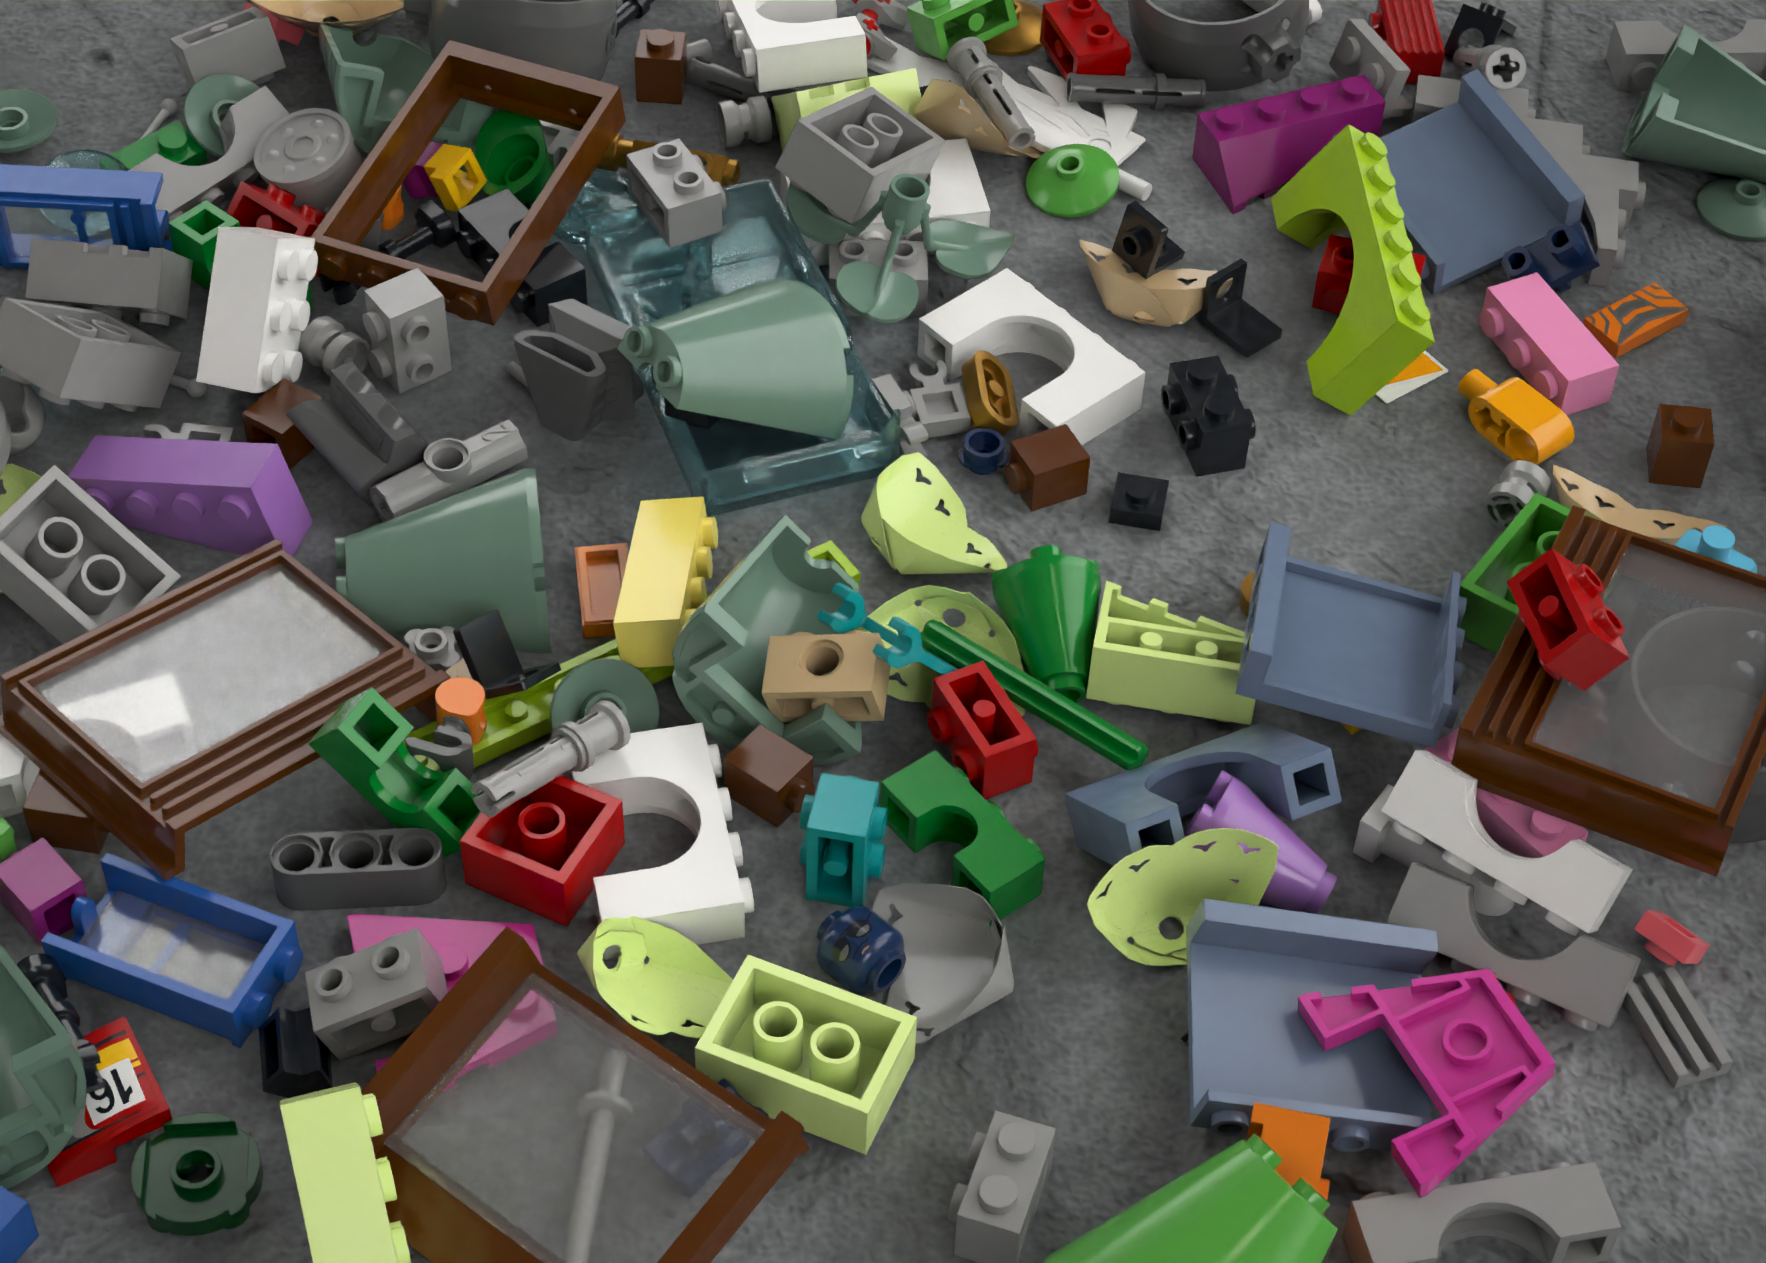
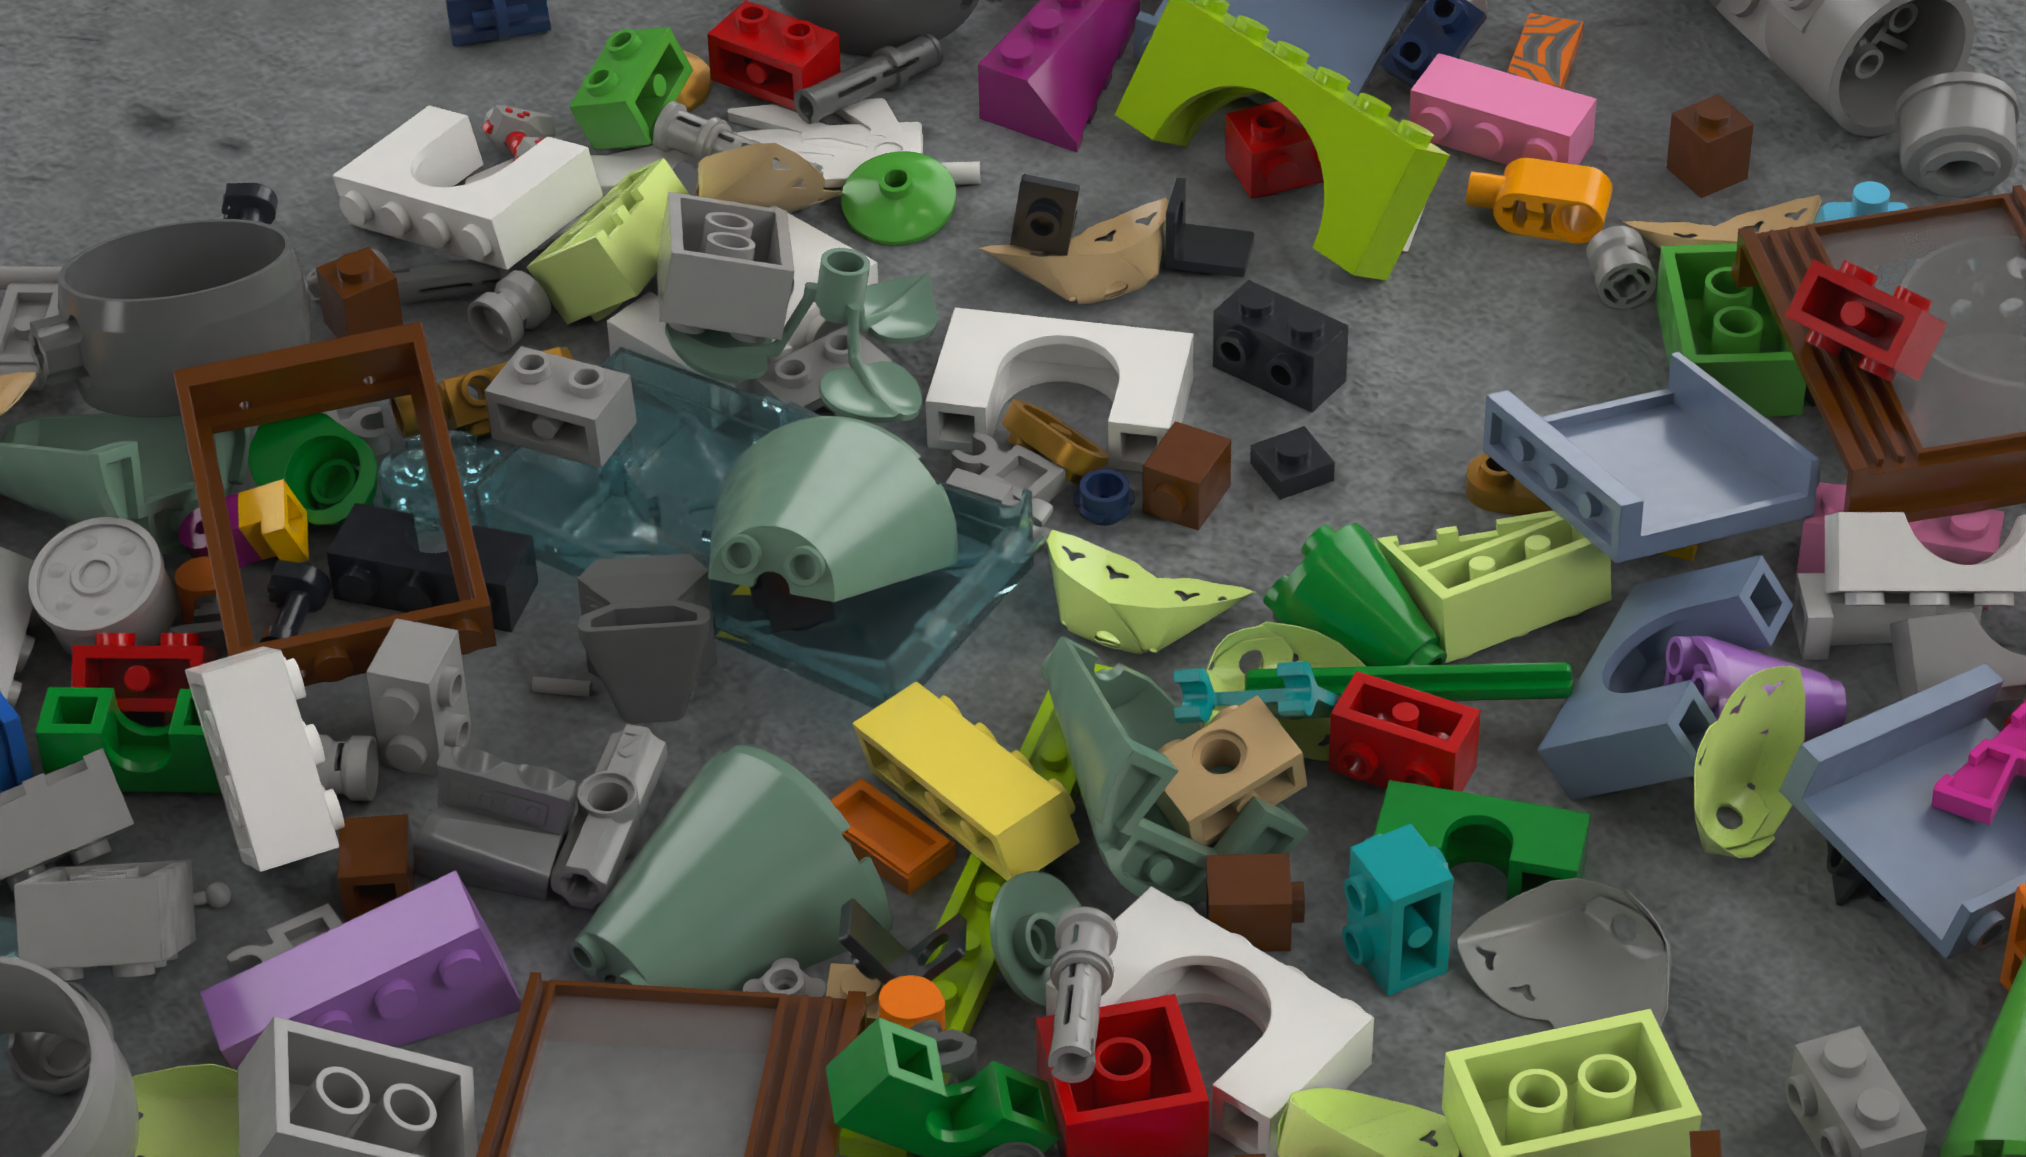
camera: 35 degrees left, 5 degrees down
(860, 950) = (1506, 996): dark blue head -> none

